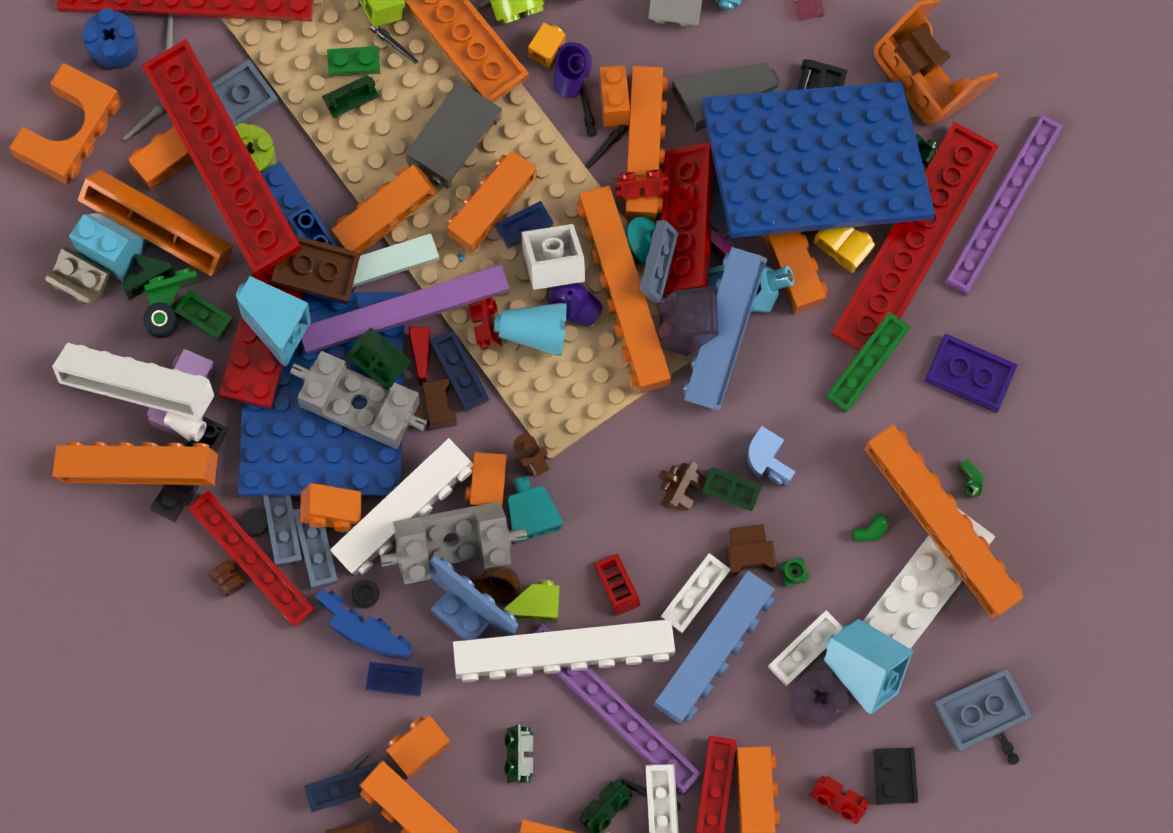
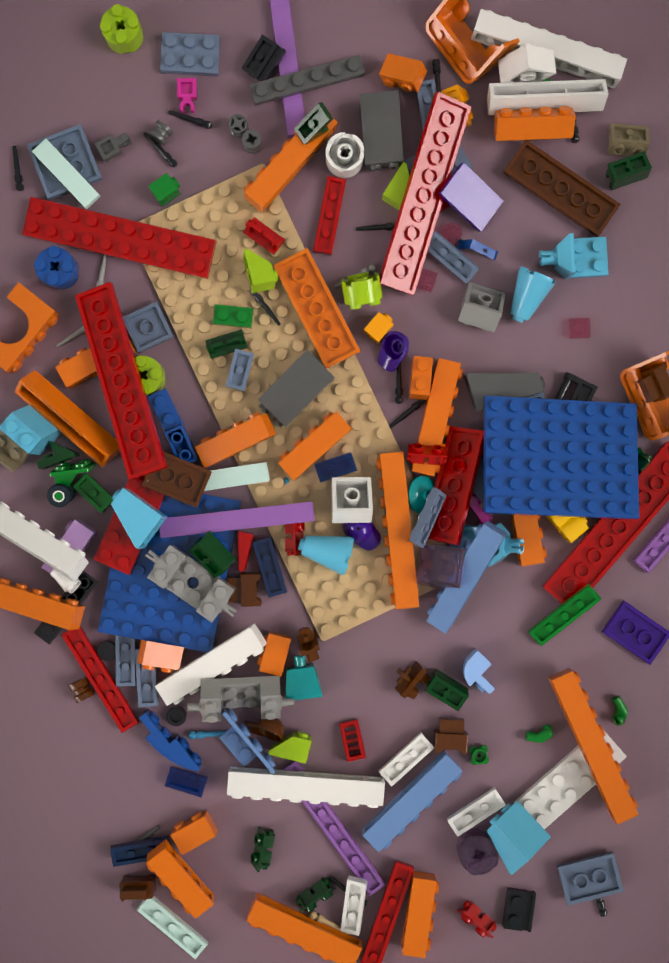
camera: 20 degrees right, 15 degrees up
(374, 124) = (240, 369): none -> sand blue plate
(405, 613) = (201, 734): none -> dark azure piece

